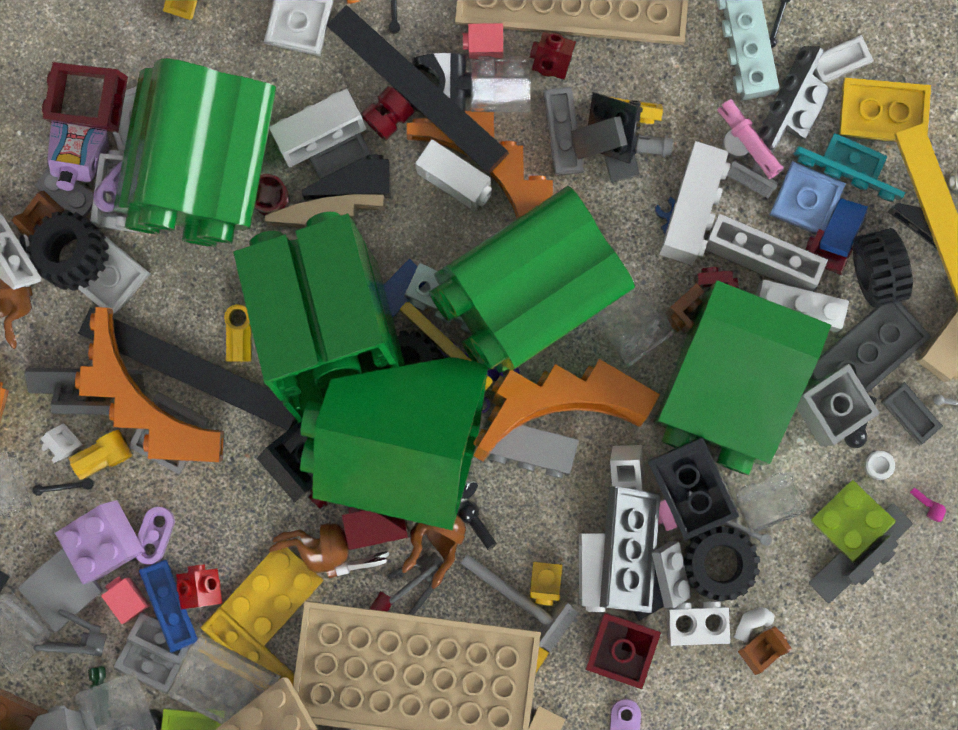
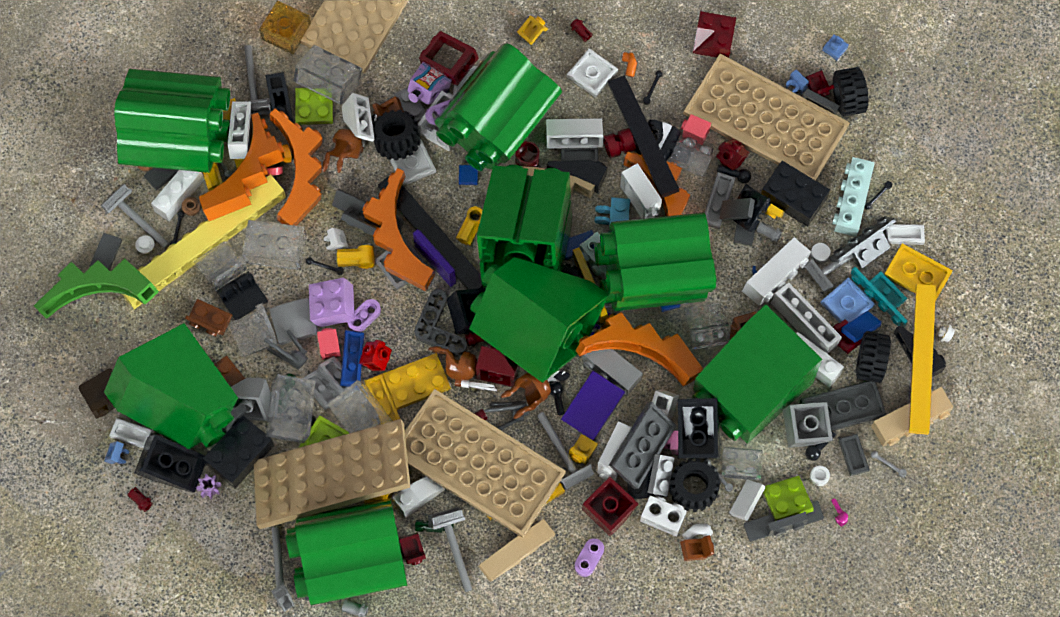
camera: 25 degrees right, 15 degrees down
(197, 259) = (468, 175): none -> blue tile
(211, 408) = (434, 258): none -> dark purple tile
(262, 511) = (432, 330): none -> dark grey beam
(436, 220) = (618, 211): none -> medium azure hinge
(531, 515) = (593, 405): none -> dark purple tile
(580, 78) = (742, 175): none -> black bar
(666, 72) = (795, 193): none -> black brick
(751, 140) = (826, 245): bright pink pin -> none
(799, 548) = (747, 500): none -> white tile

